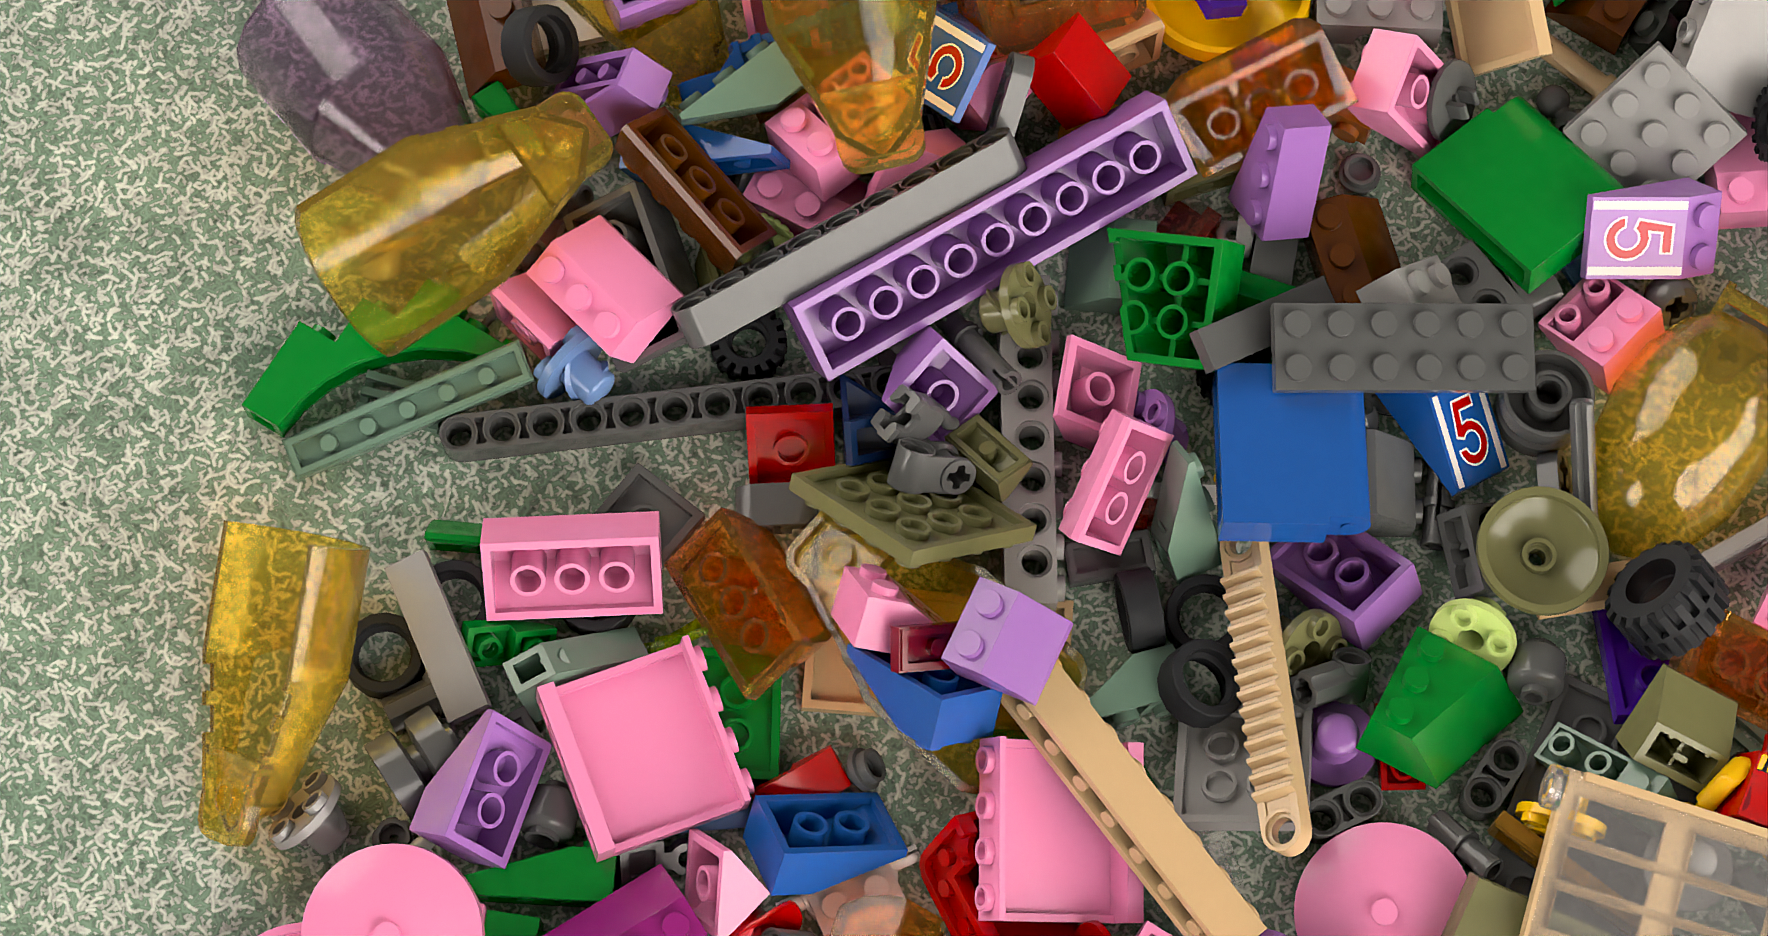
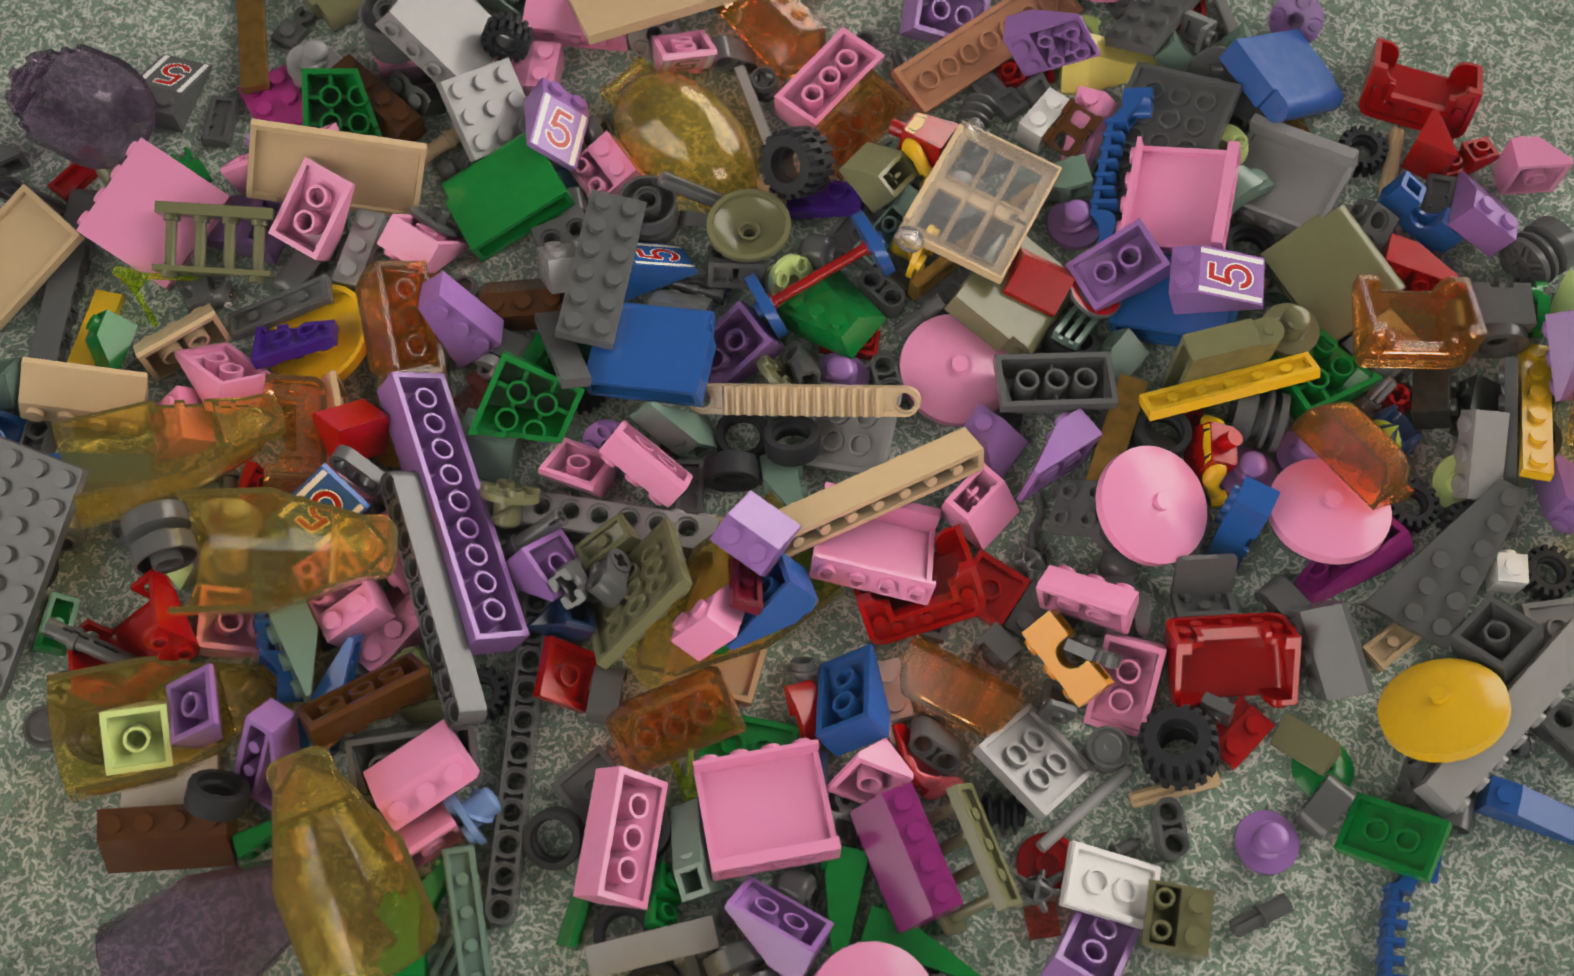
camera: 80 degrees left, 5 degrees down
(543, 466) = (534, 850): none -> black tyre
(1541, 735) = (872, 244): none -> blue piece

